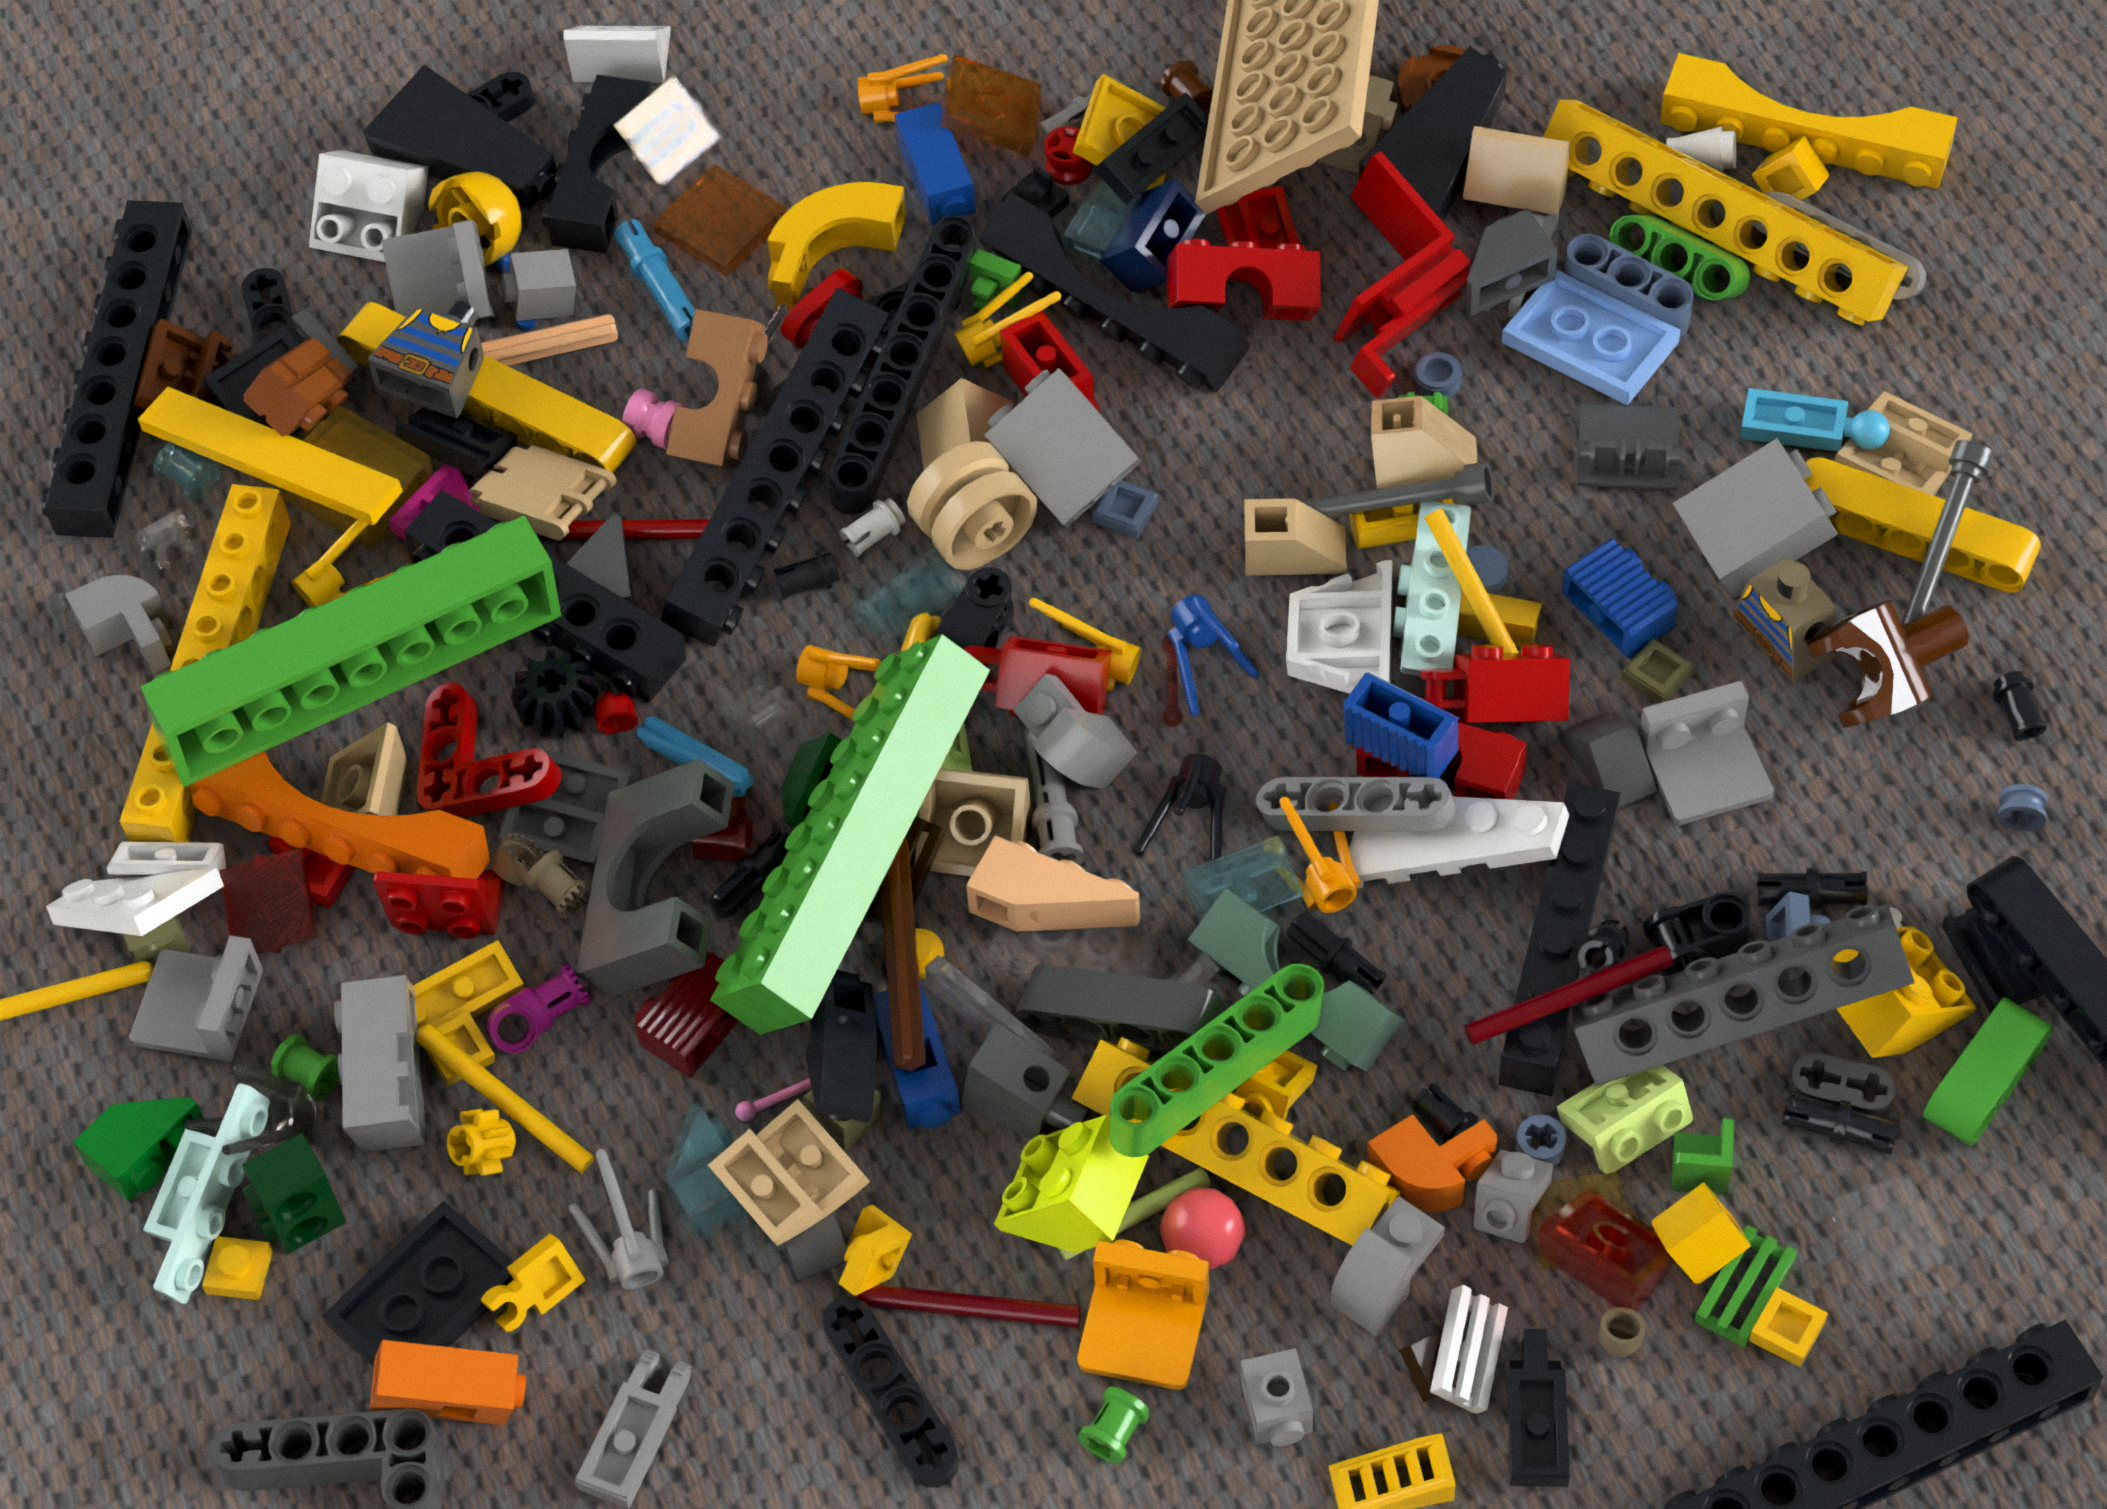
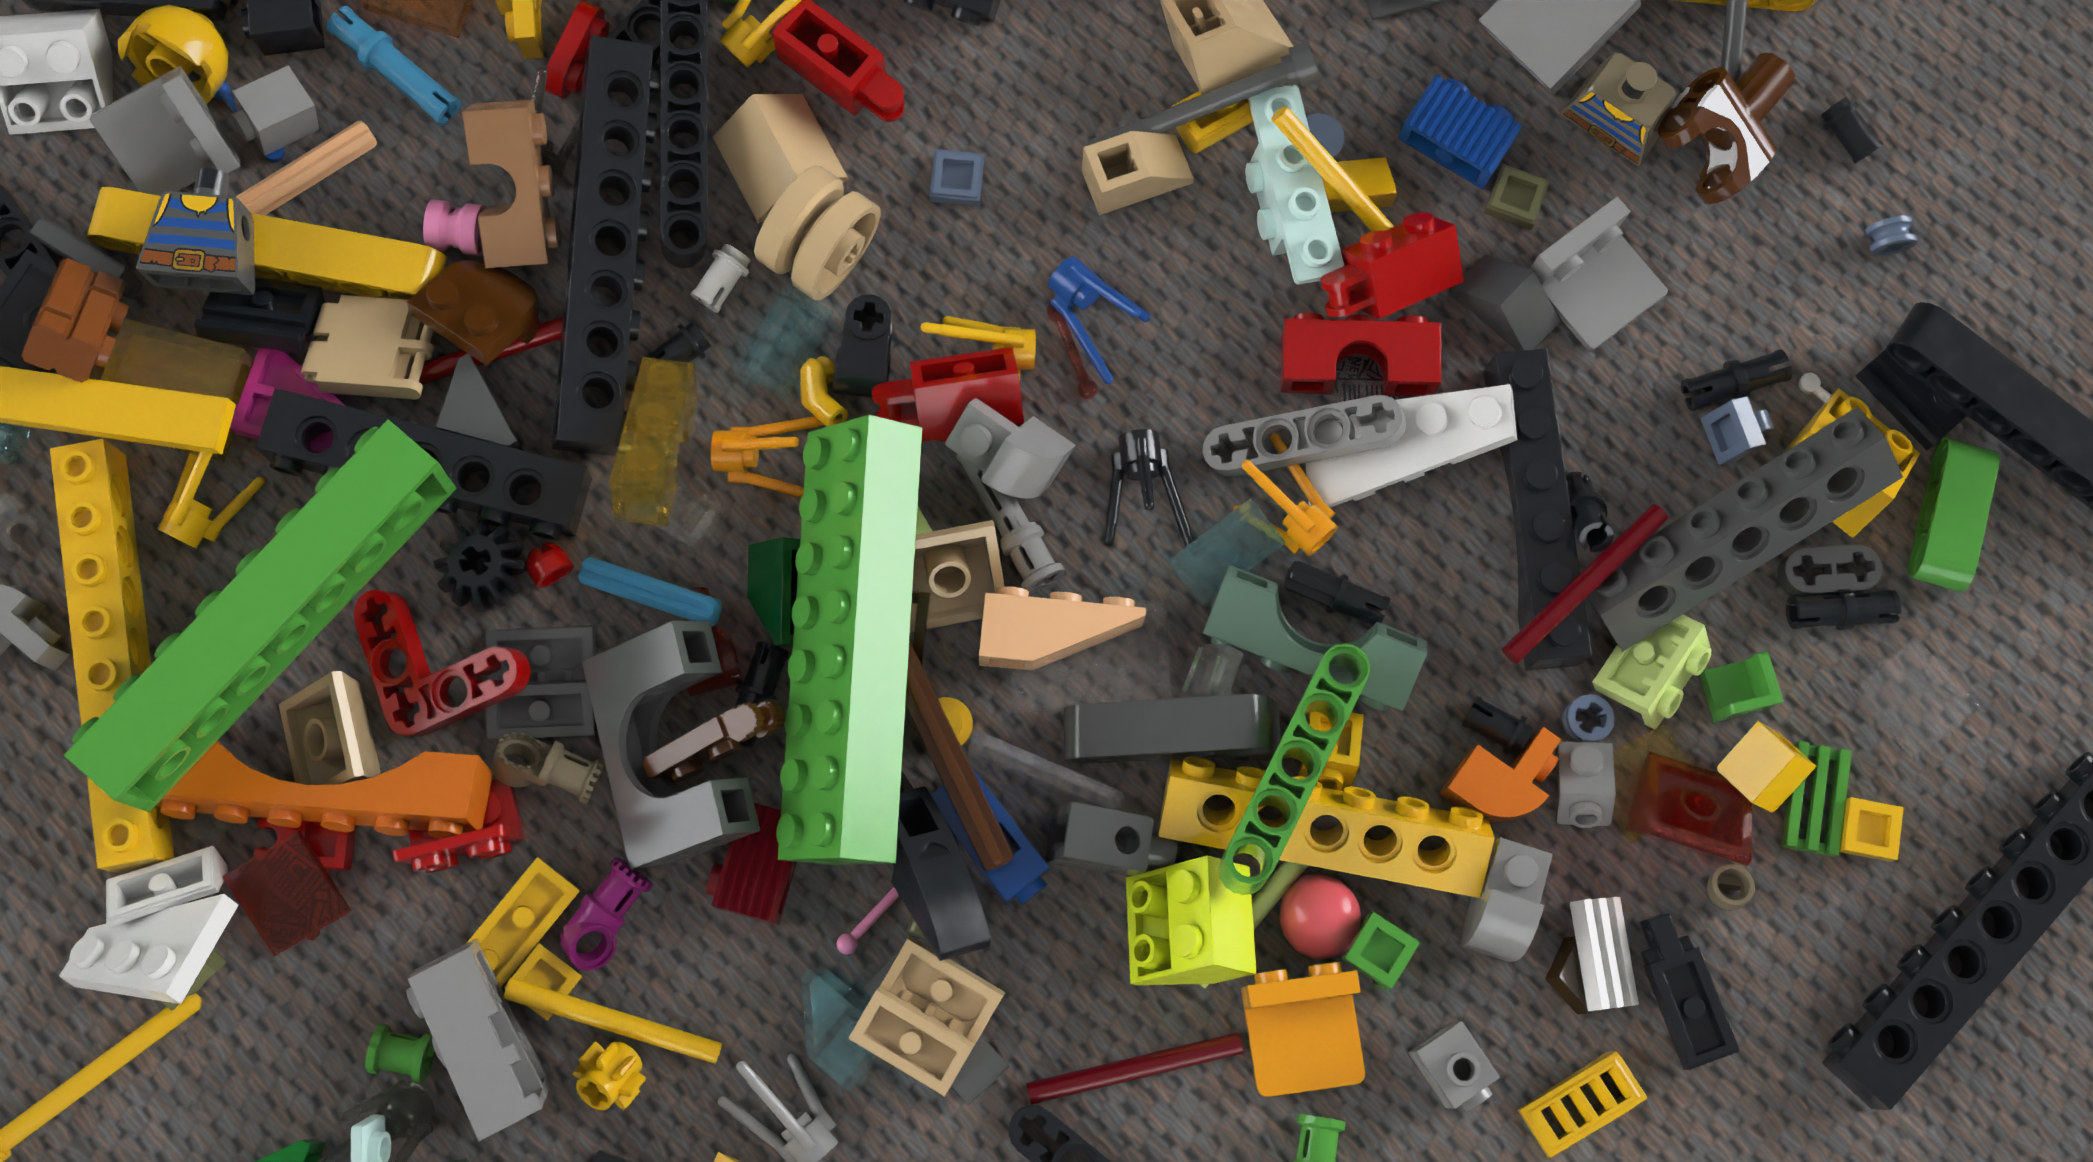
camera: 30 degrees left, 20 degrees up
(198, 1001) = (259, 1022): light grey bracket -> none
(645, 484) = (478, 308): none -> reddish brown slope
(701, 879) = (714, 740): none -> reddish brown hinge
(766, 610) = (646, 460): none -> clear yellow arch
(873, 1251) = (1033, 1046): yellow bracket -> none
(1061, 446) = (882, 142): light grey brick -> none
(1245, 1268) = (1380, 950): none -> bright green panel
(1342, 630) = (1223, 255): white wing -> none
(1400, 727) = (1332, 355): blue brick -> none
(1692, 933) = (1650, 465): black piece -> none

